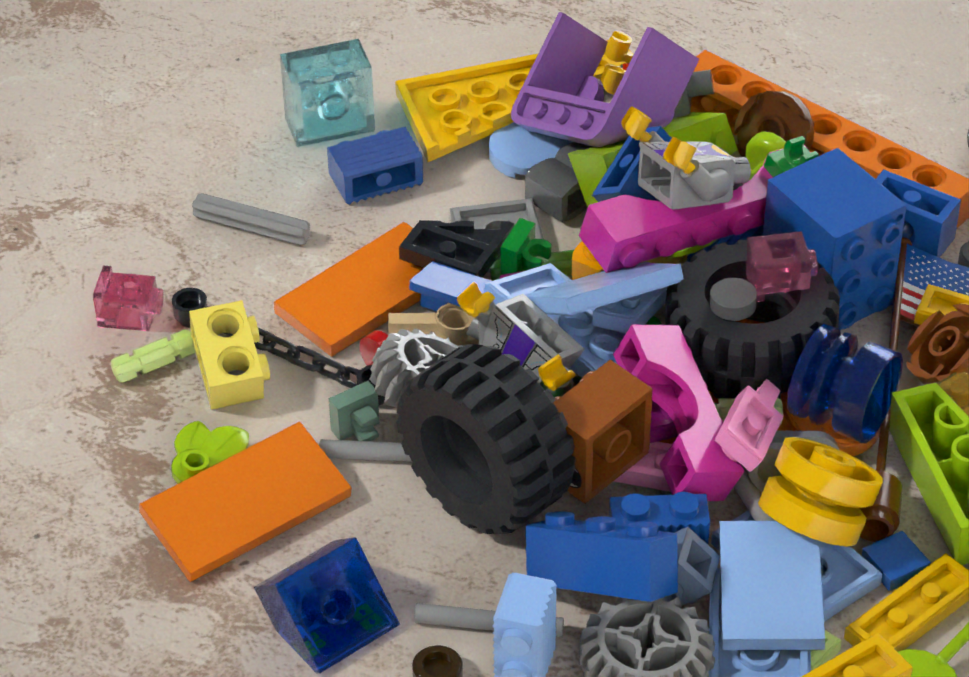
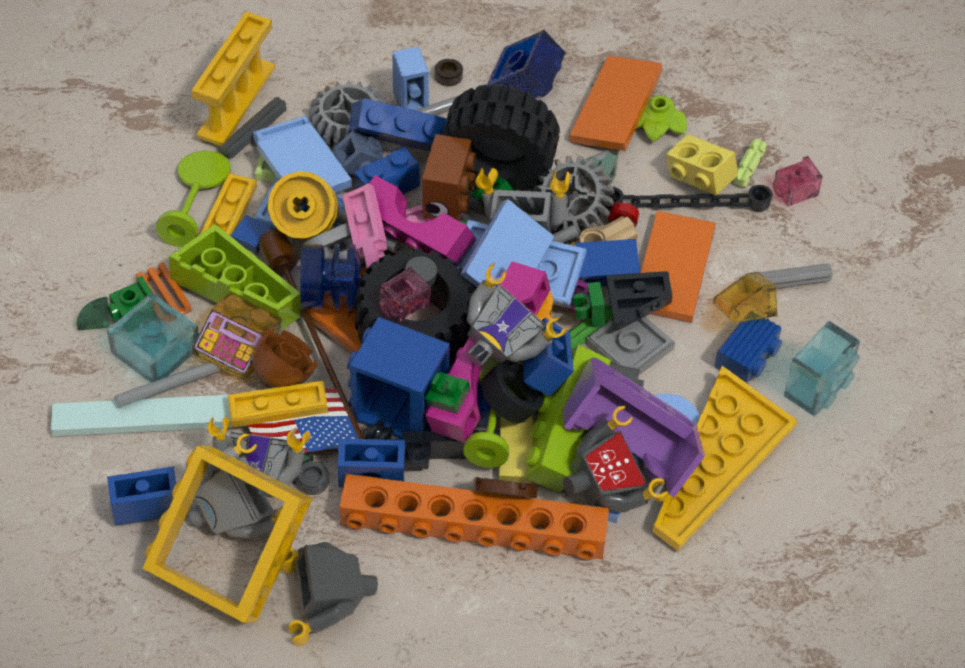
camera: 145 degrees right, 10 degrees up
(316, 180) = (748, 298): none -> clear yellow tile

